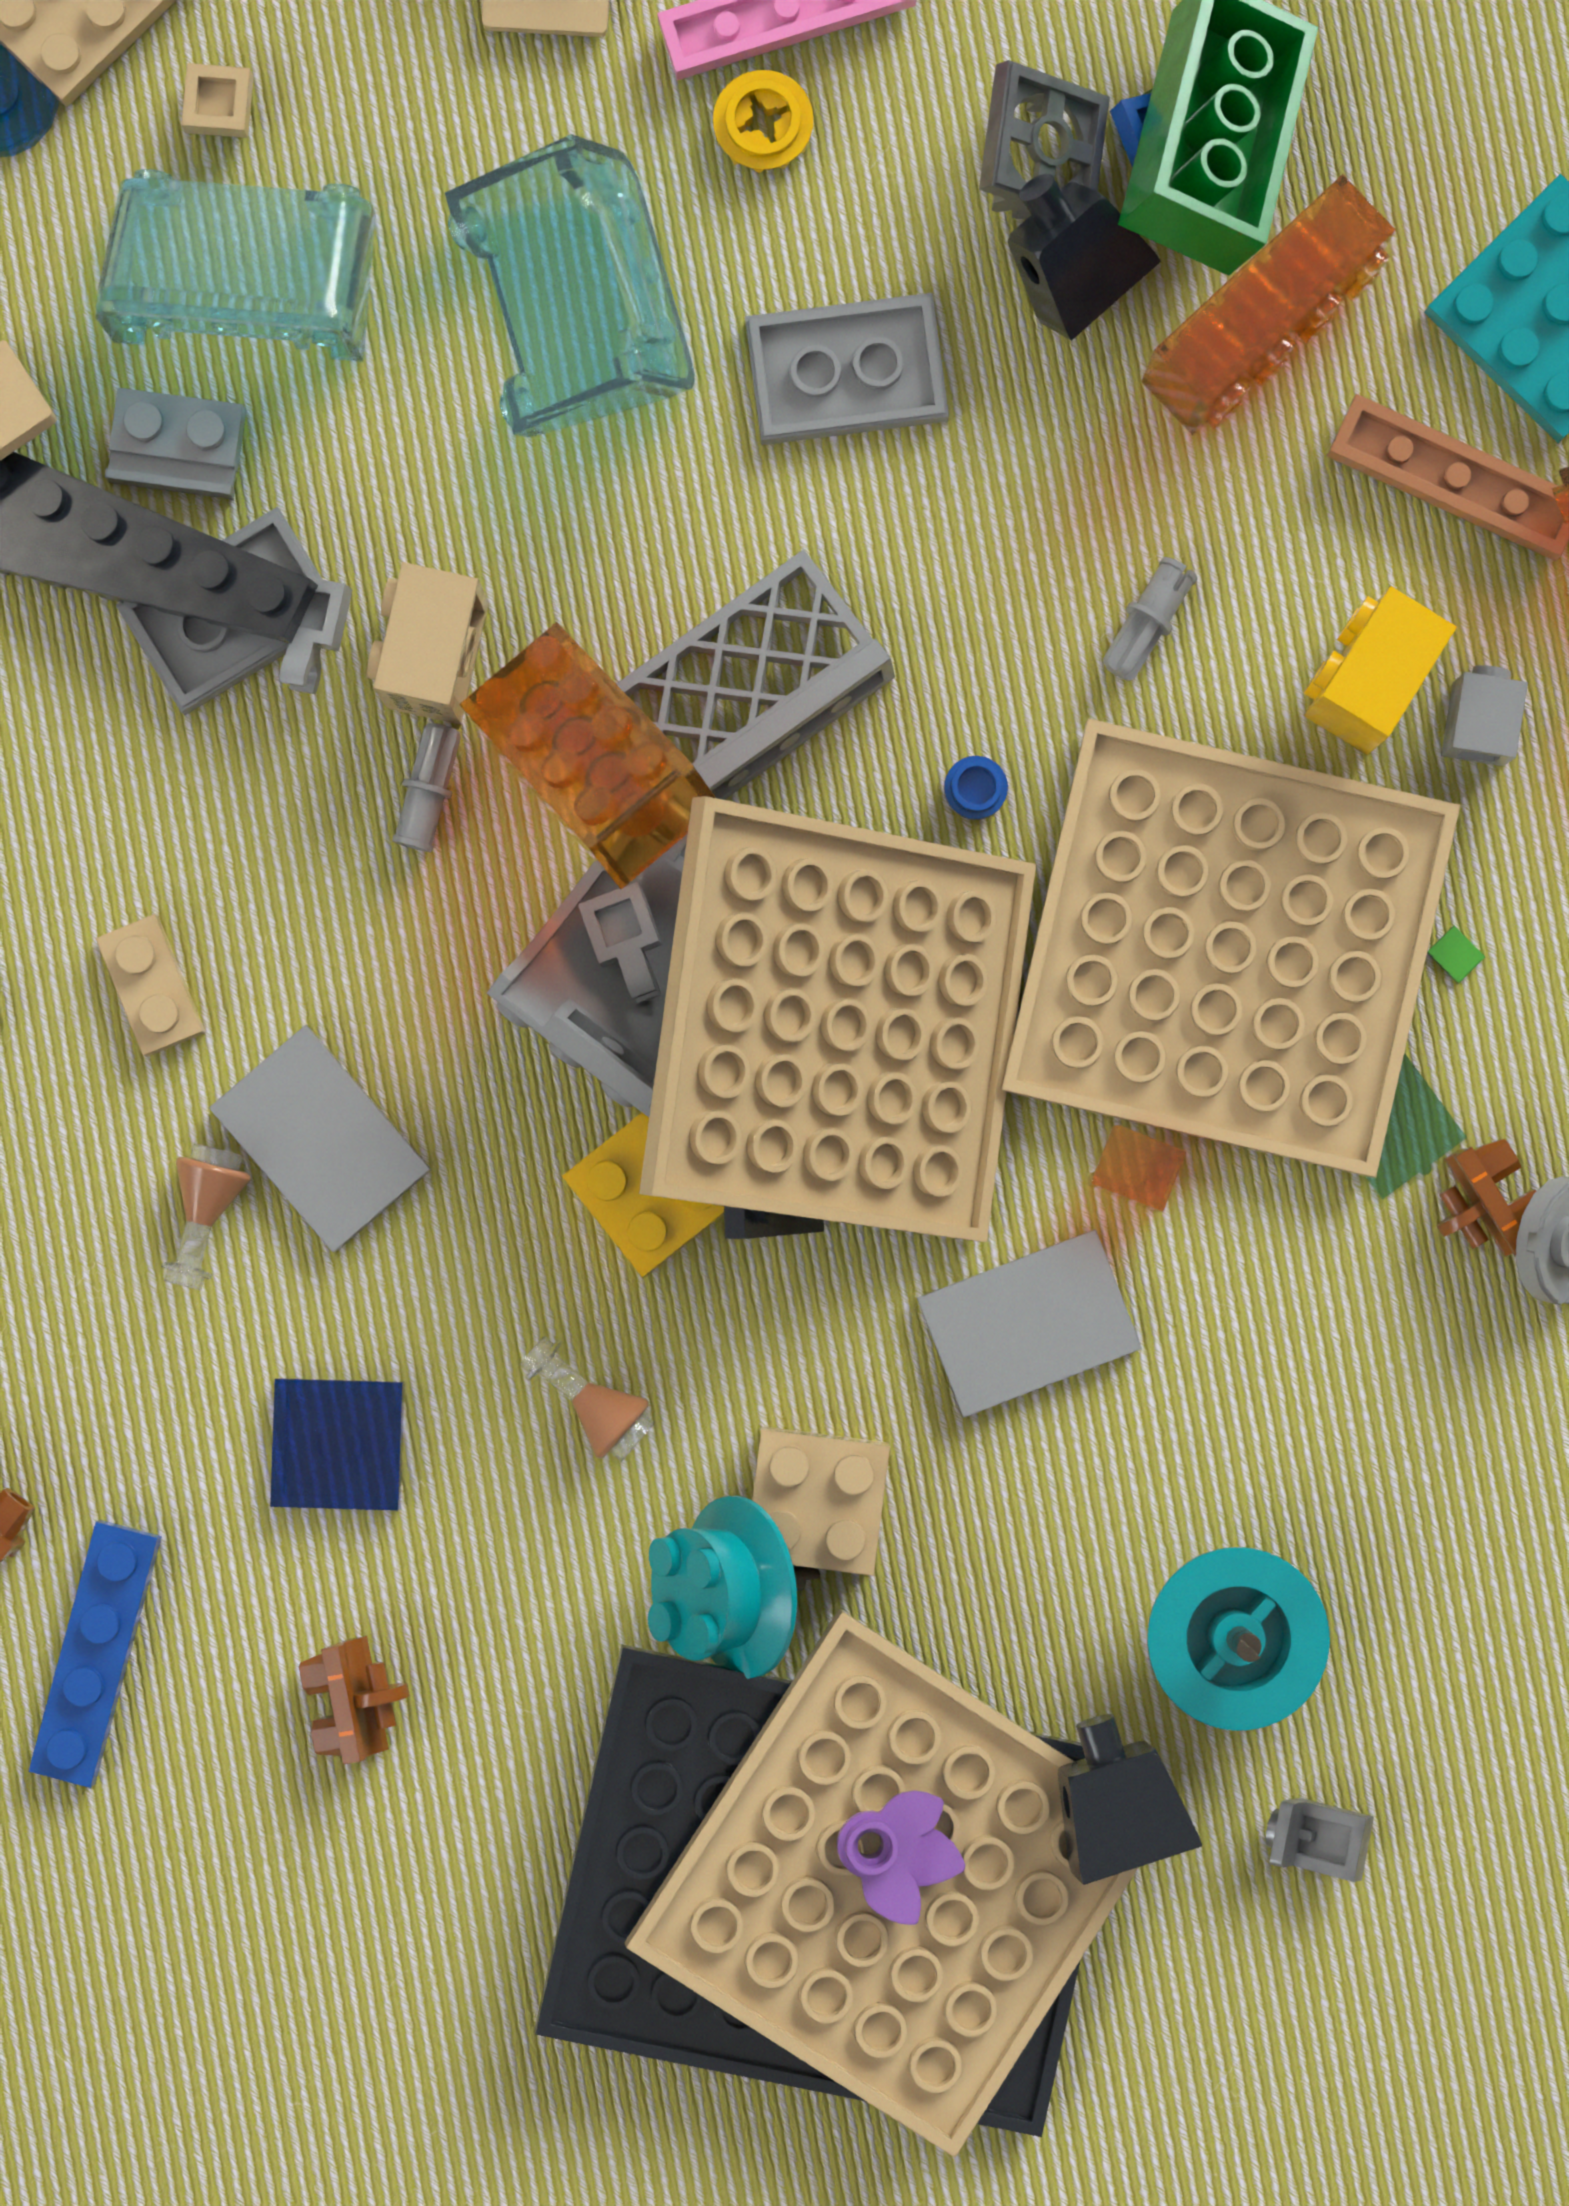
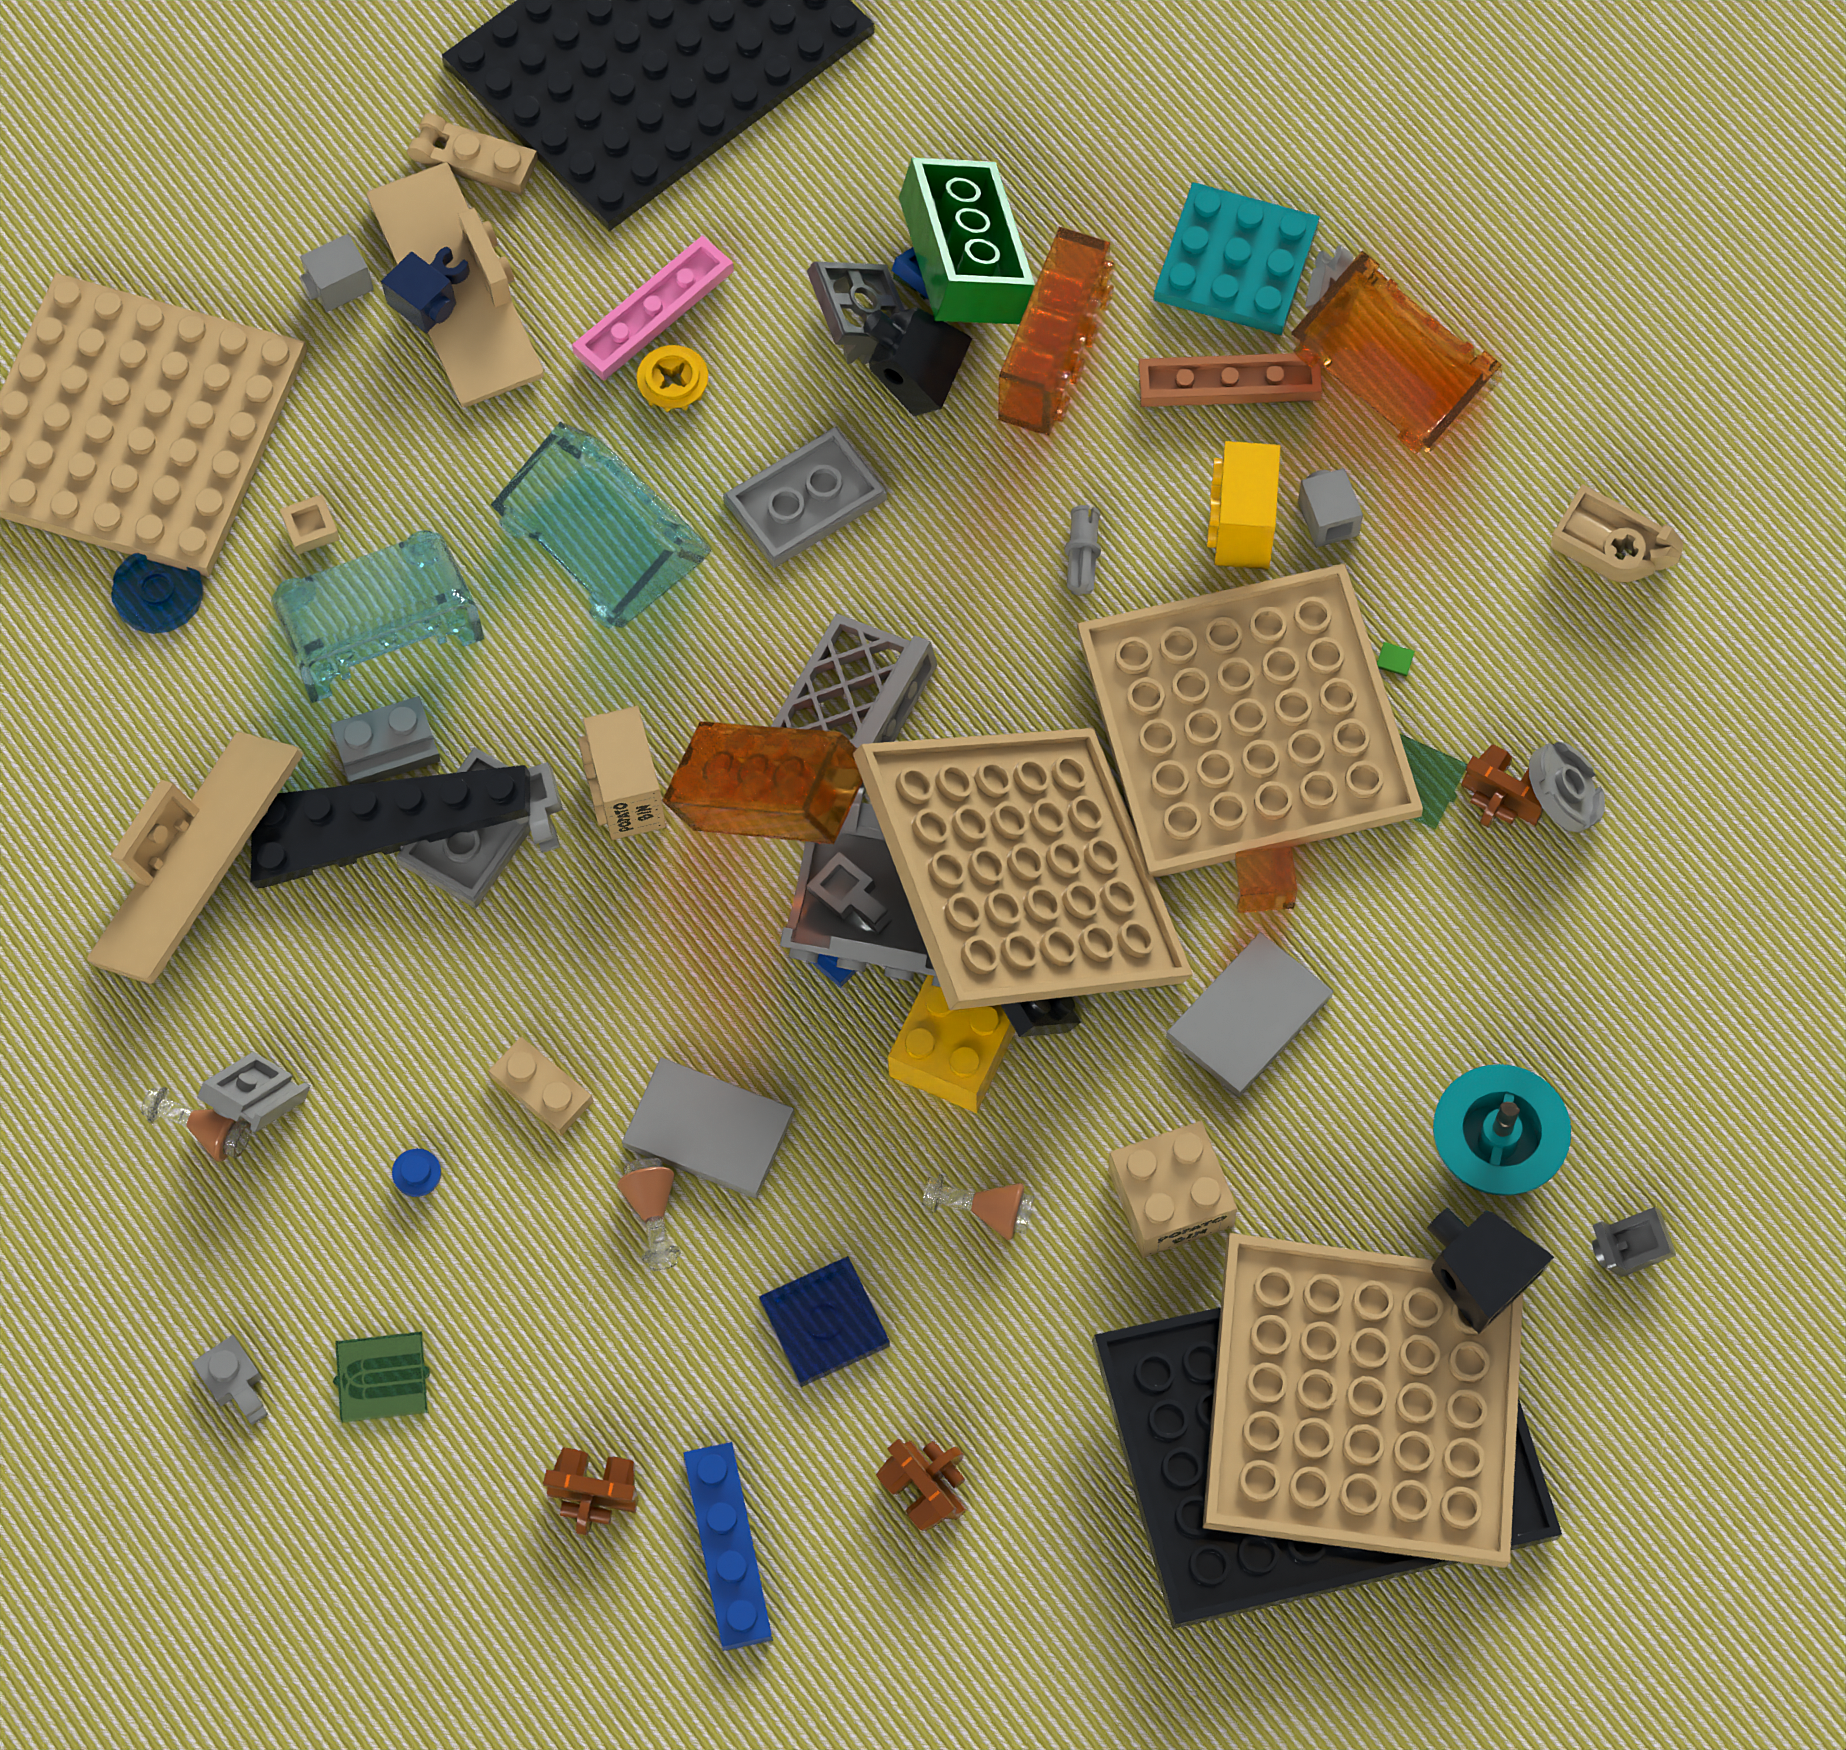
camera: 25 degrees left, 20 degrees down
(427, 787) = (665, 872): light grey axle -> none
(726, 1588) = (1144, 1262): teal piece -> none
(907, 1857) = (1362, 1366): medium lavender plate -> none
(975, 787) = (1028, 702): blue plate -> none

